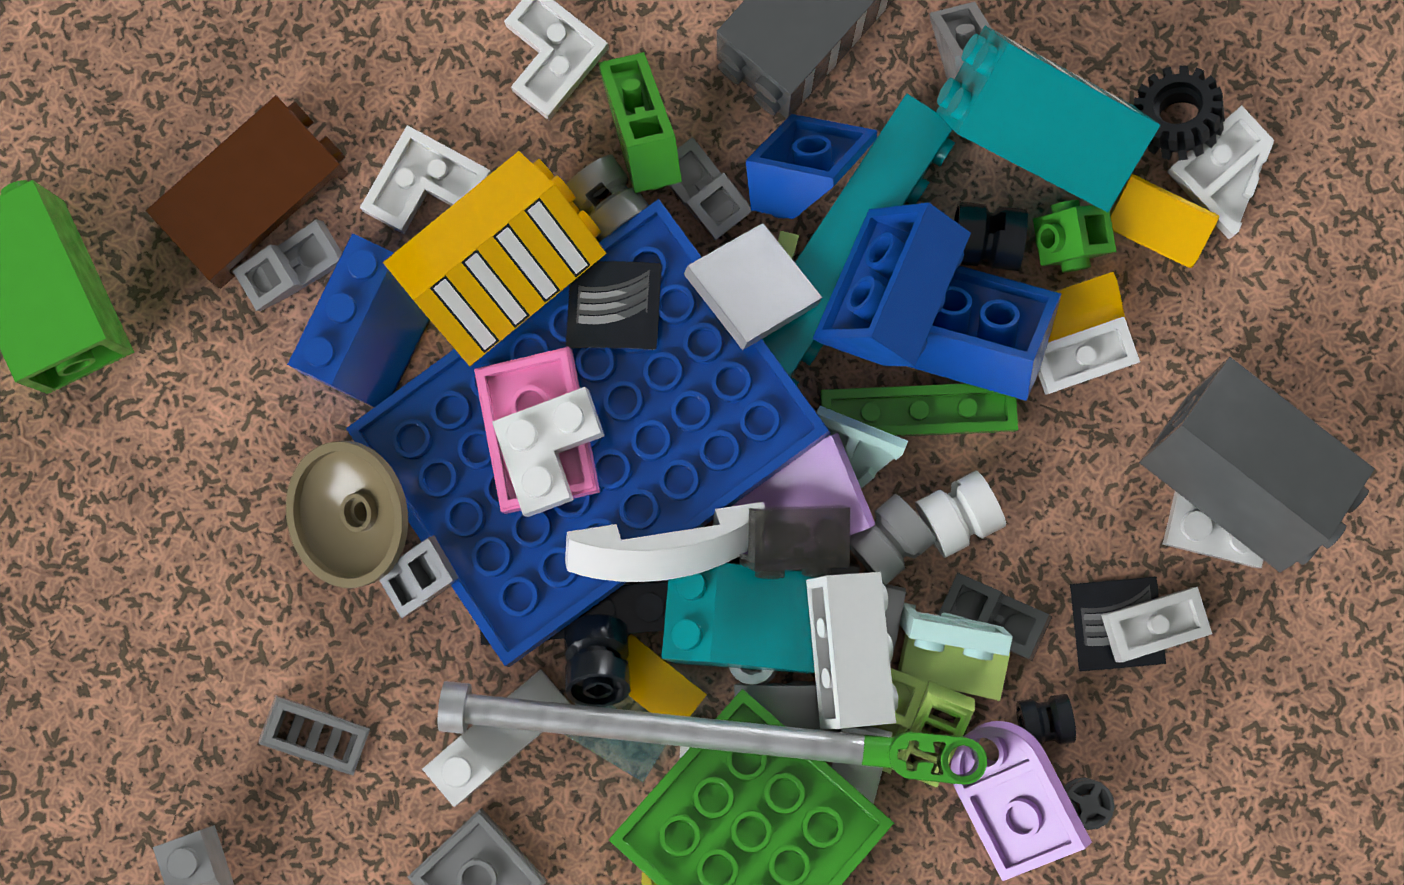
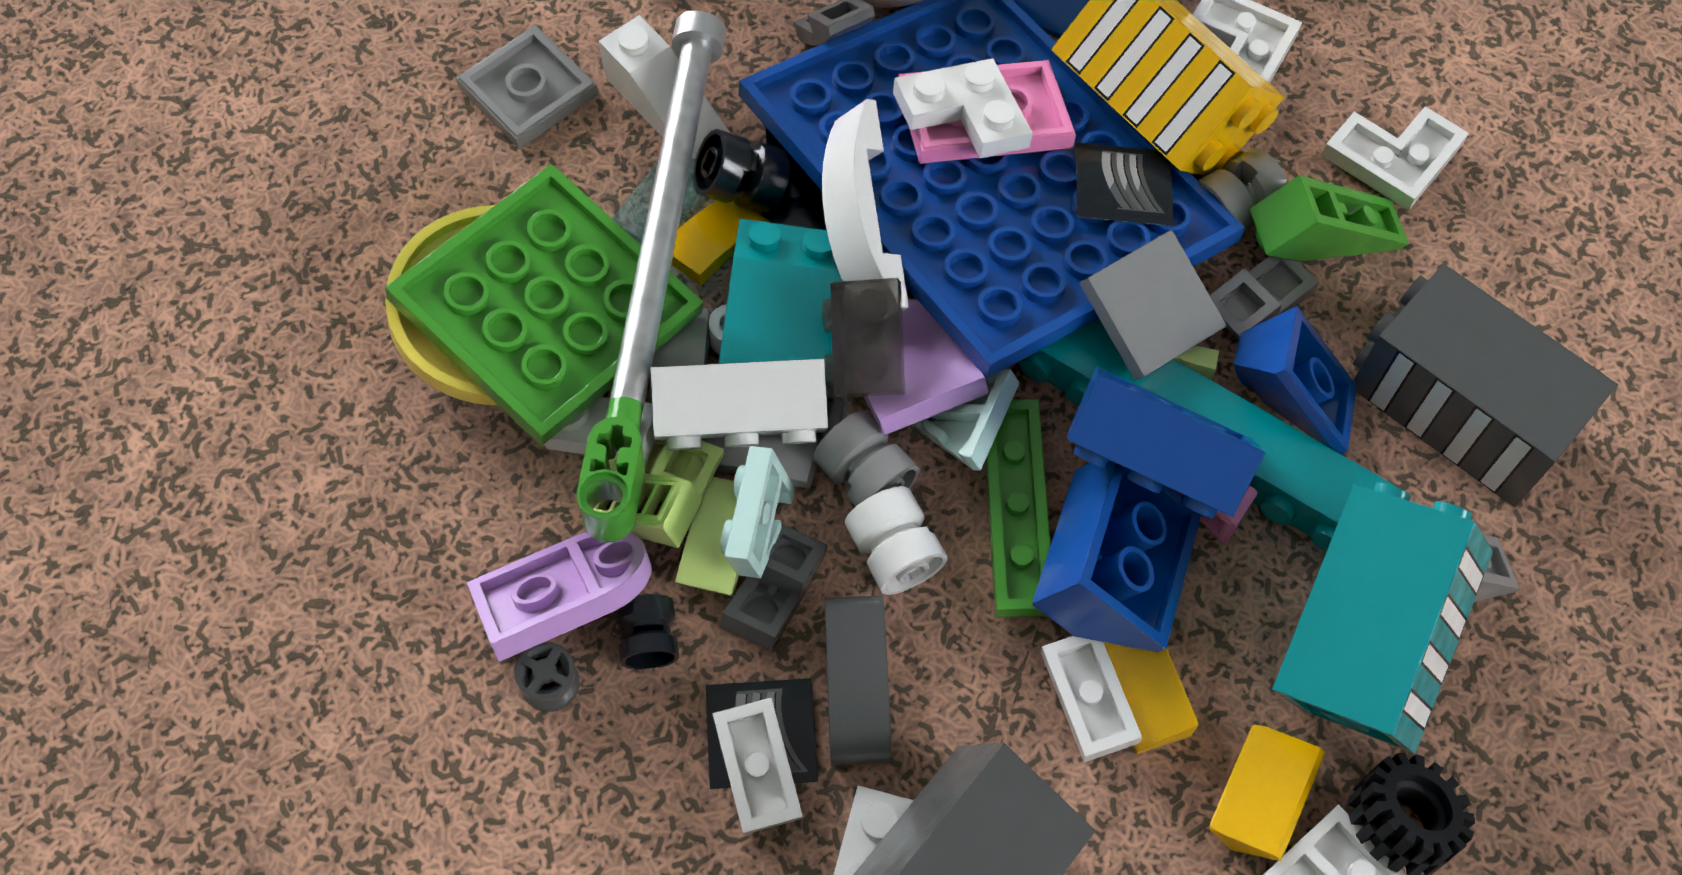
camera: 85 degrees right, 20 degrees down
(994, 236) = (1231, 581): black wheel -> none
(1064, 237) = (1238, 675): bright green brick -> none
(1079, 545) = (857, 681): none -> dark grey beam

